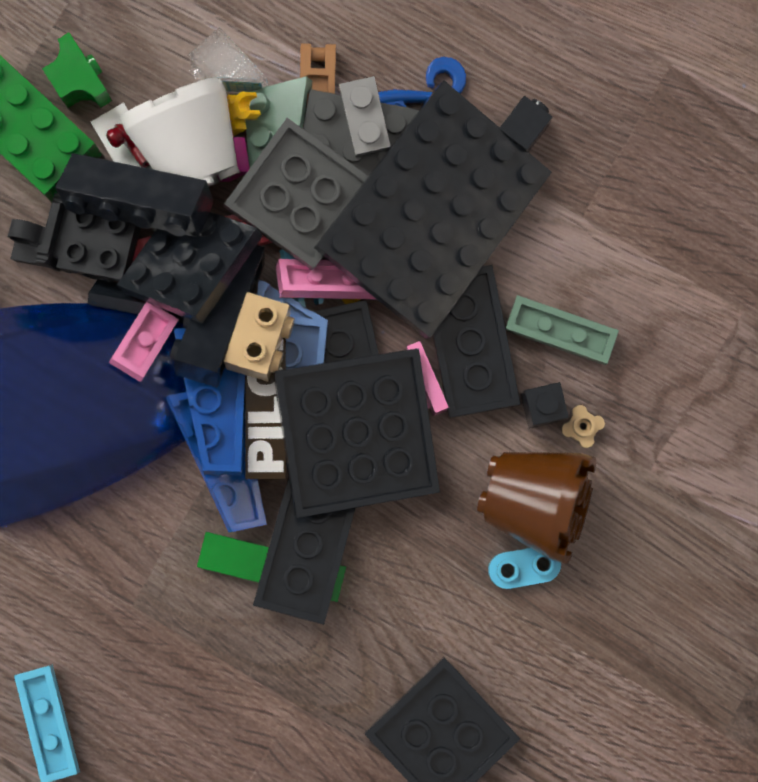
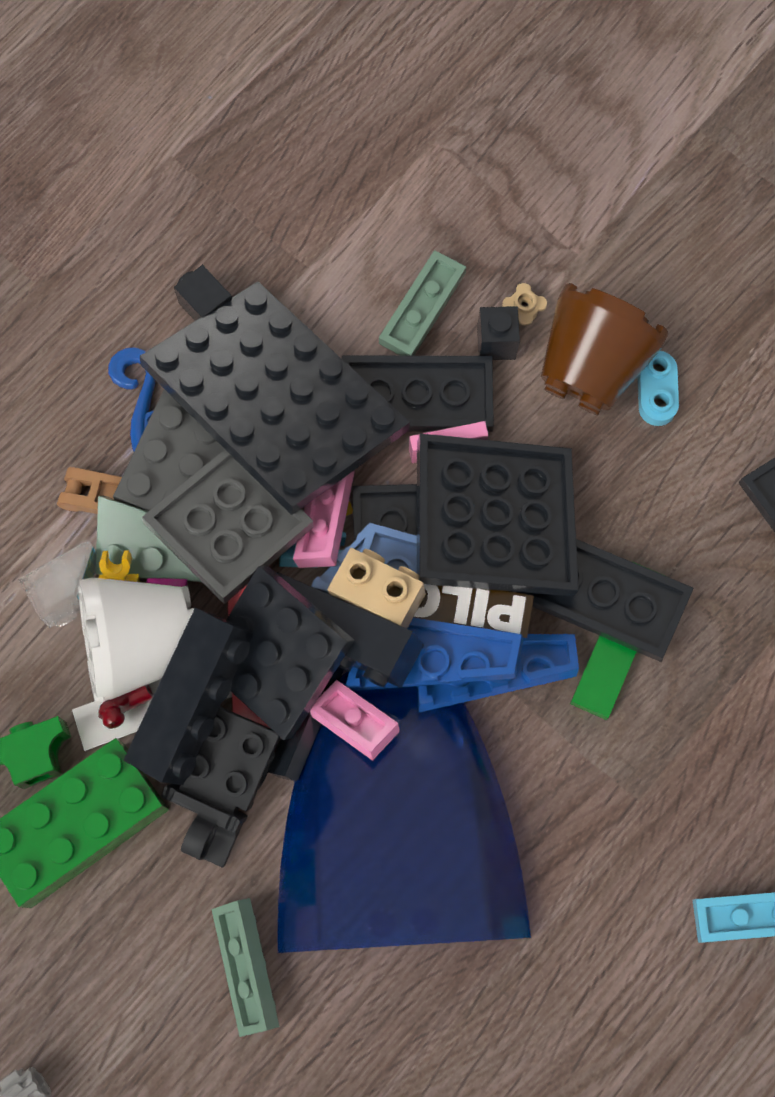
camera: 75 degrees left, 10 degrees down
(364, 116) = (157, 443): light grey plate -> none

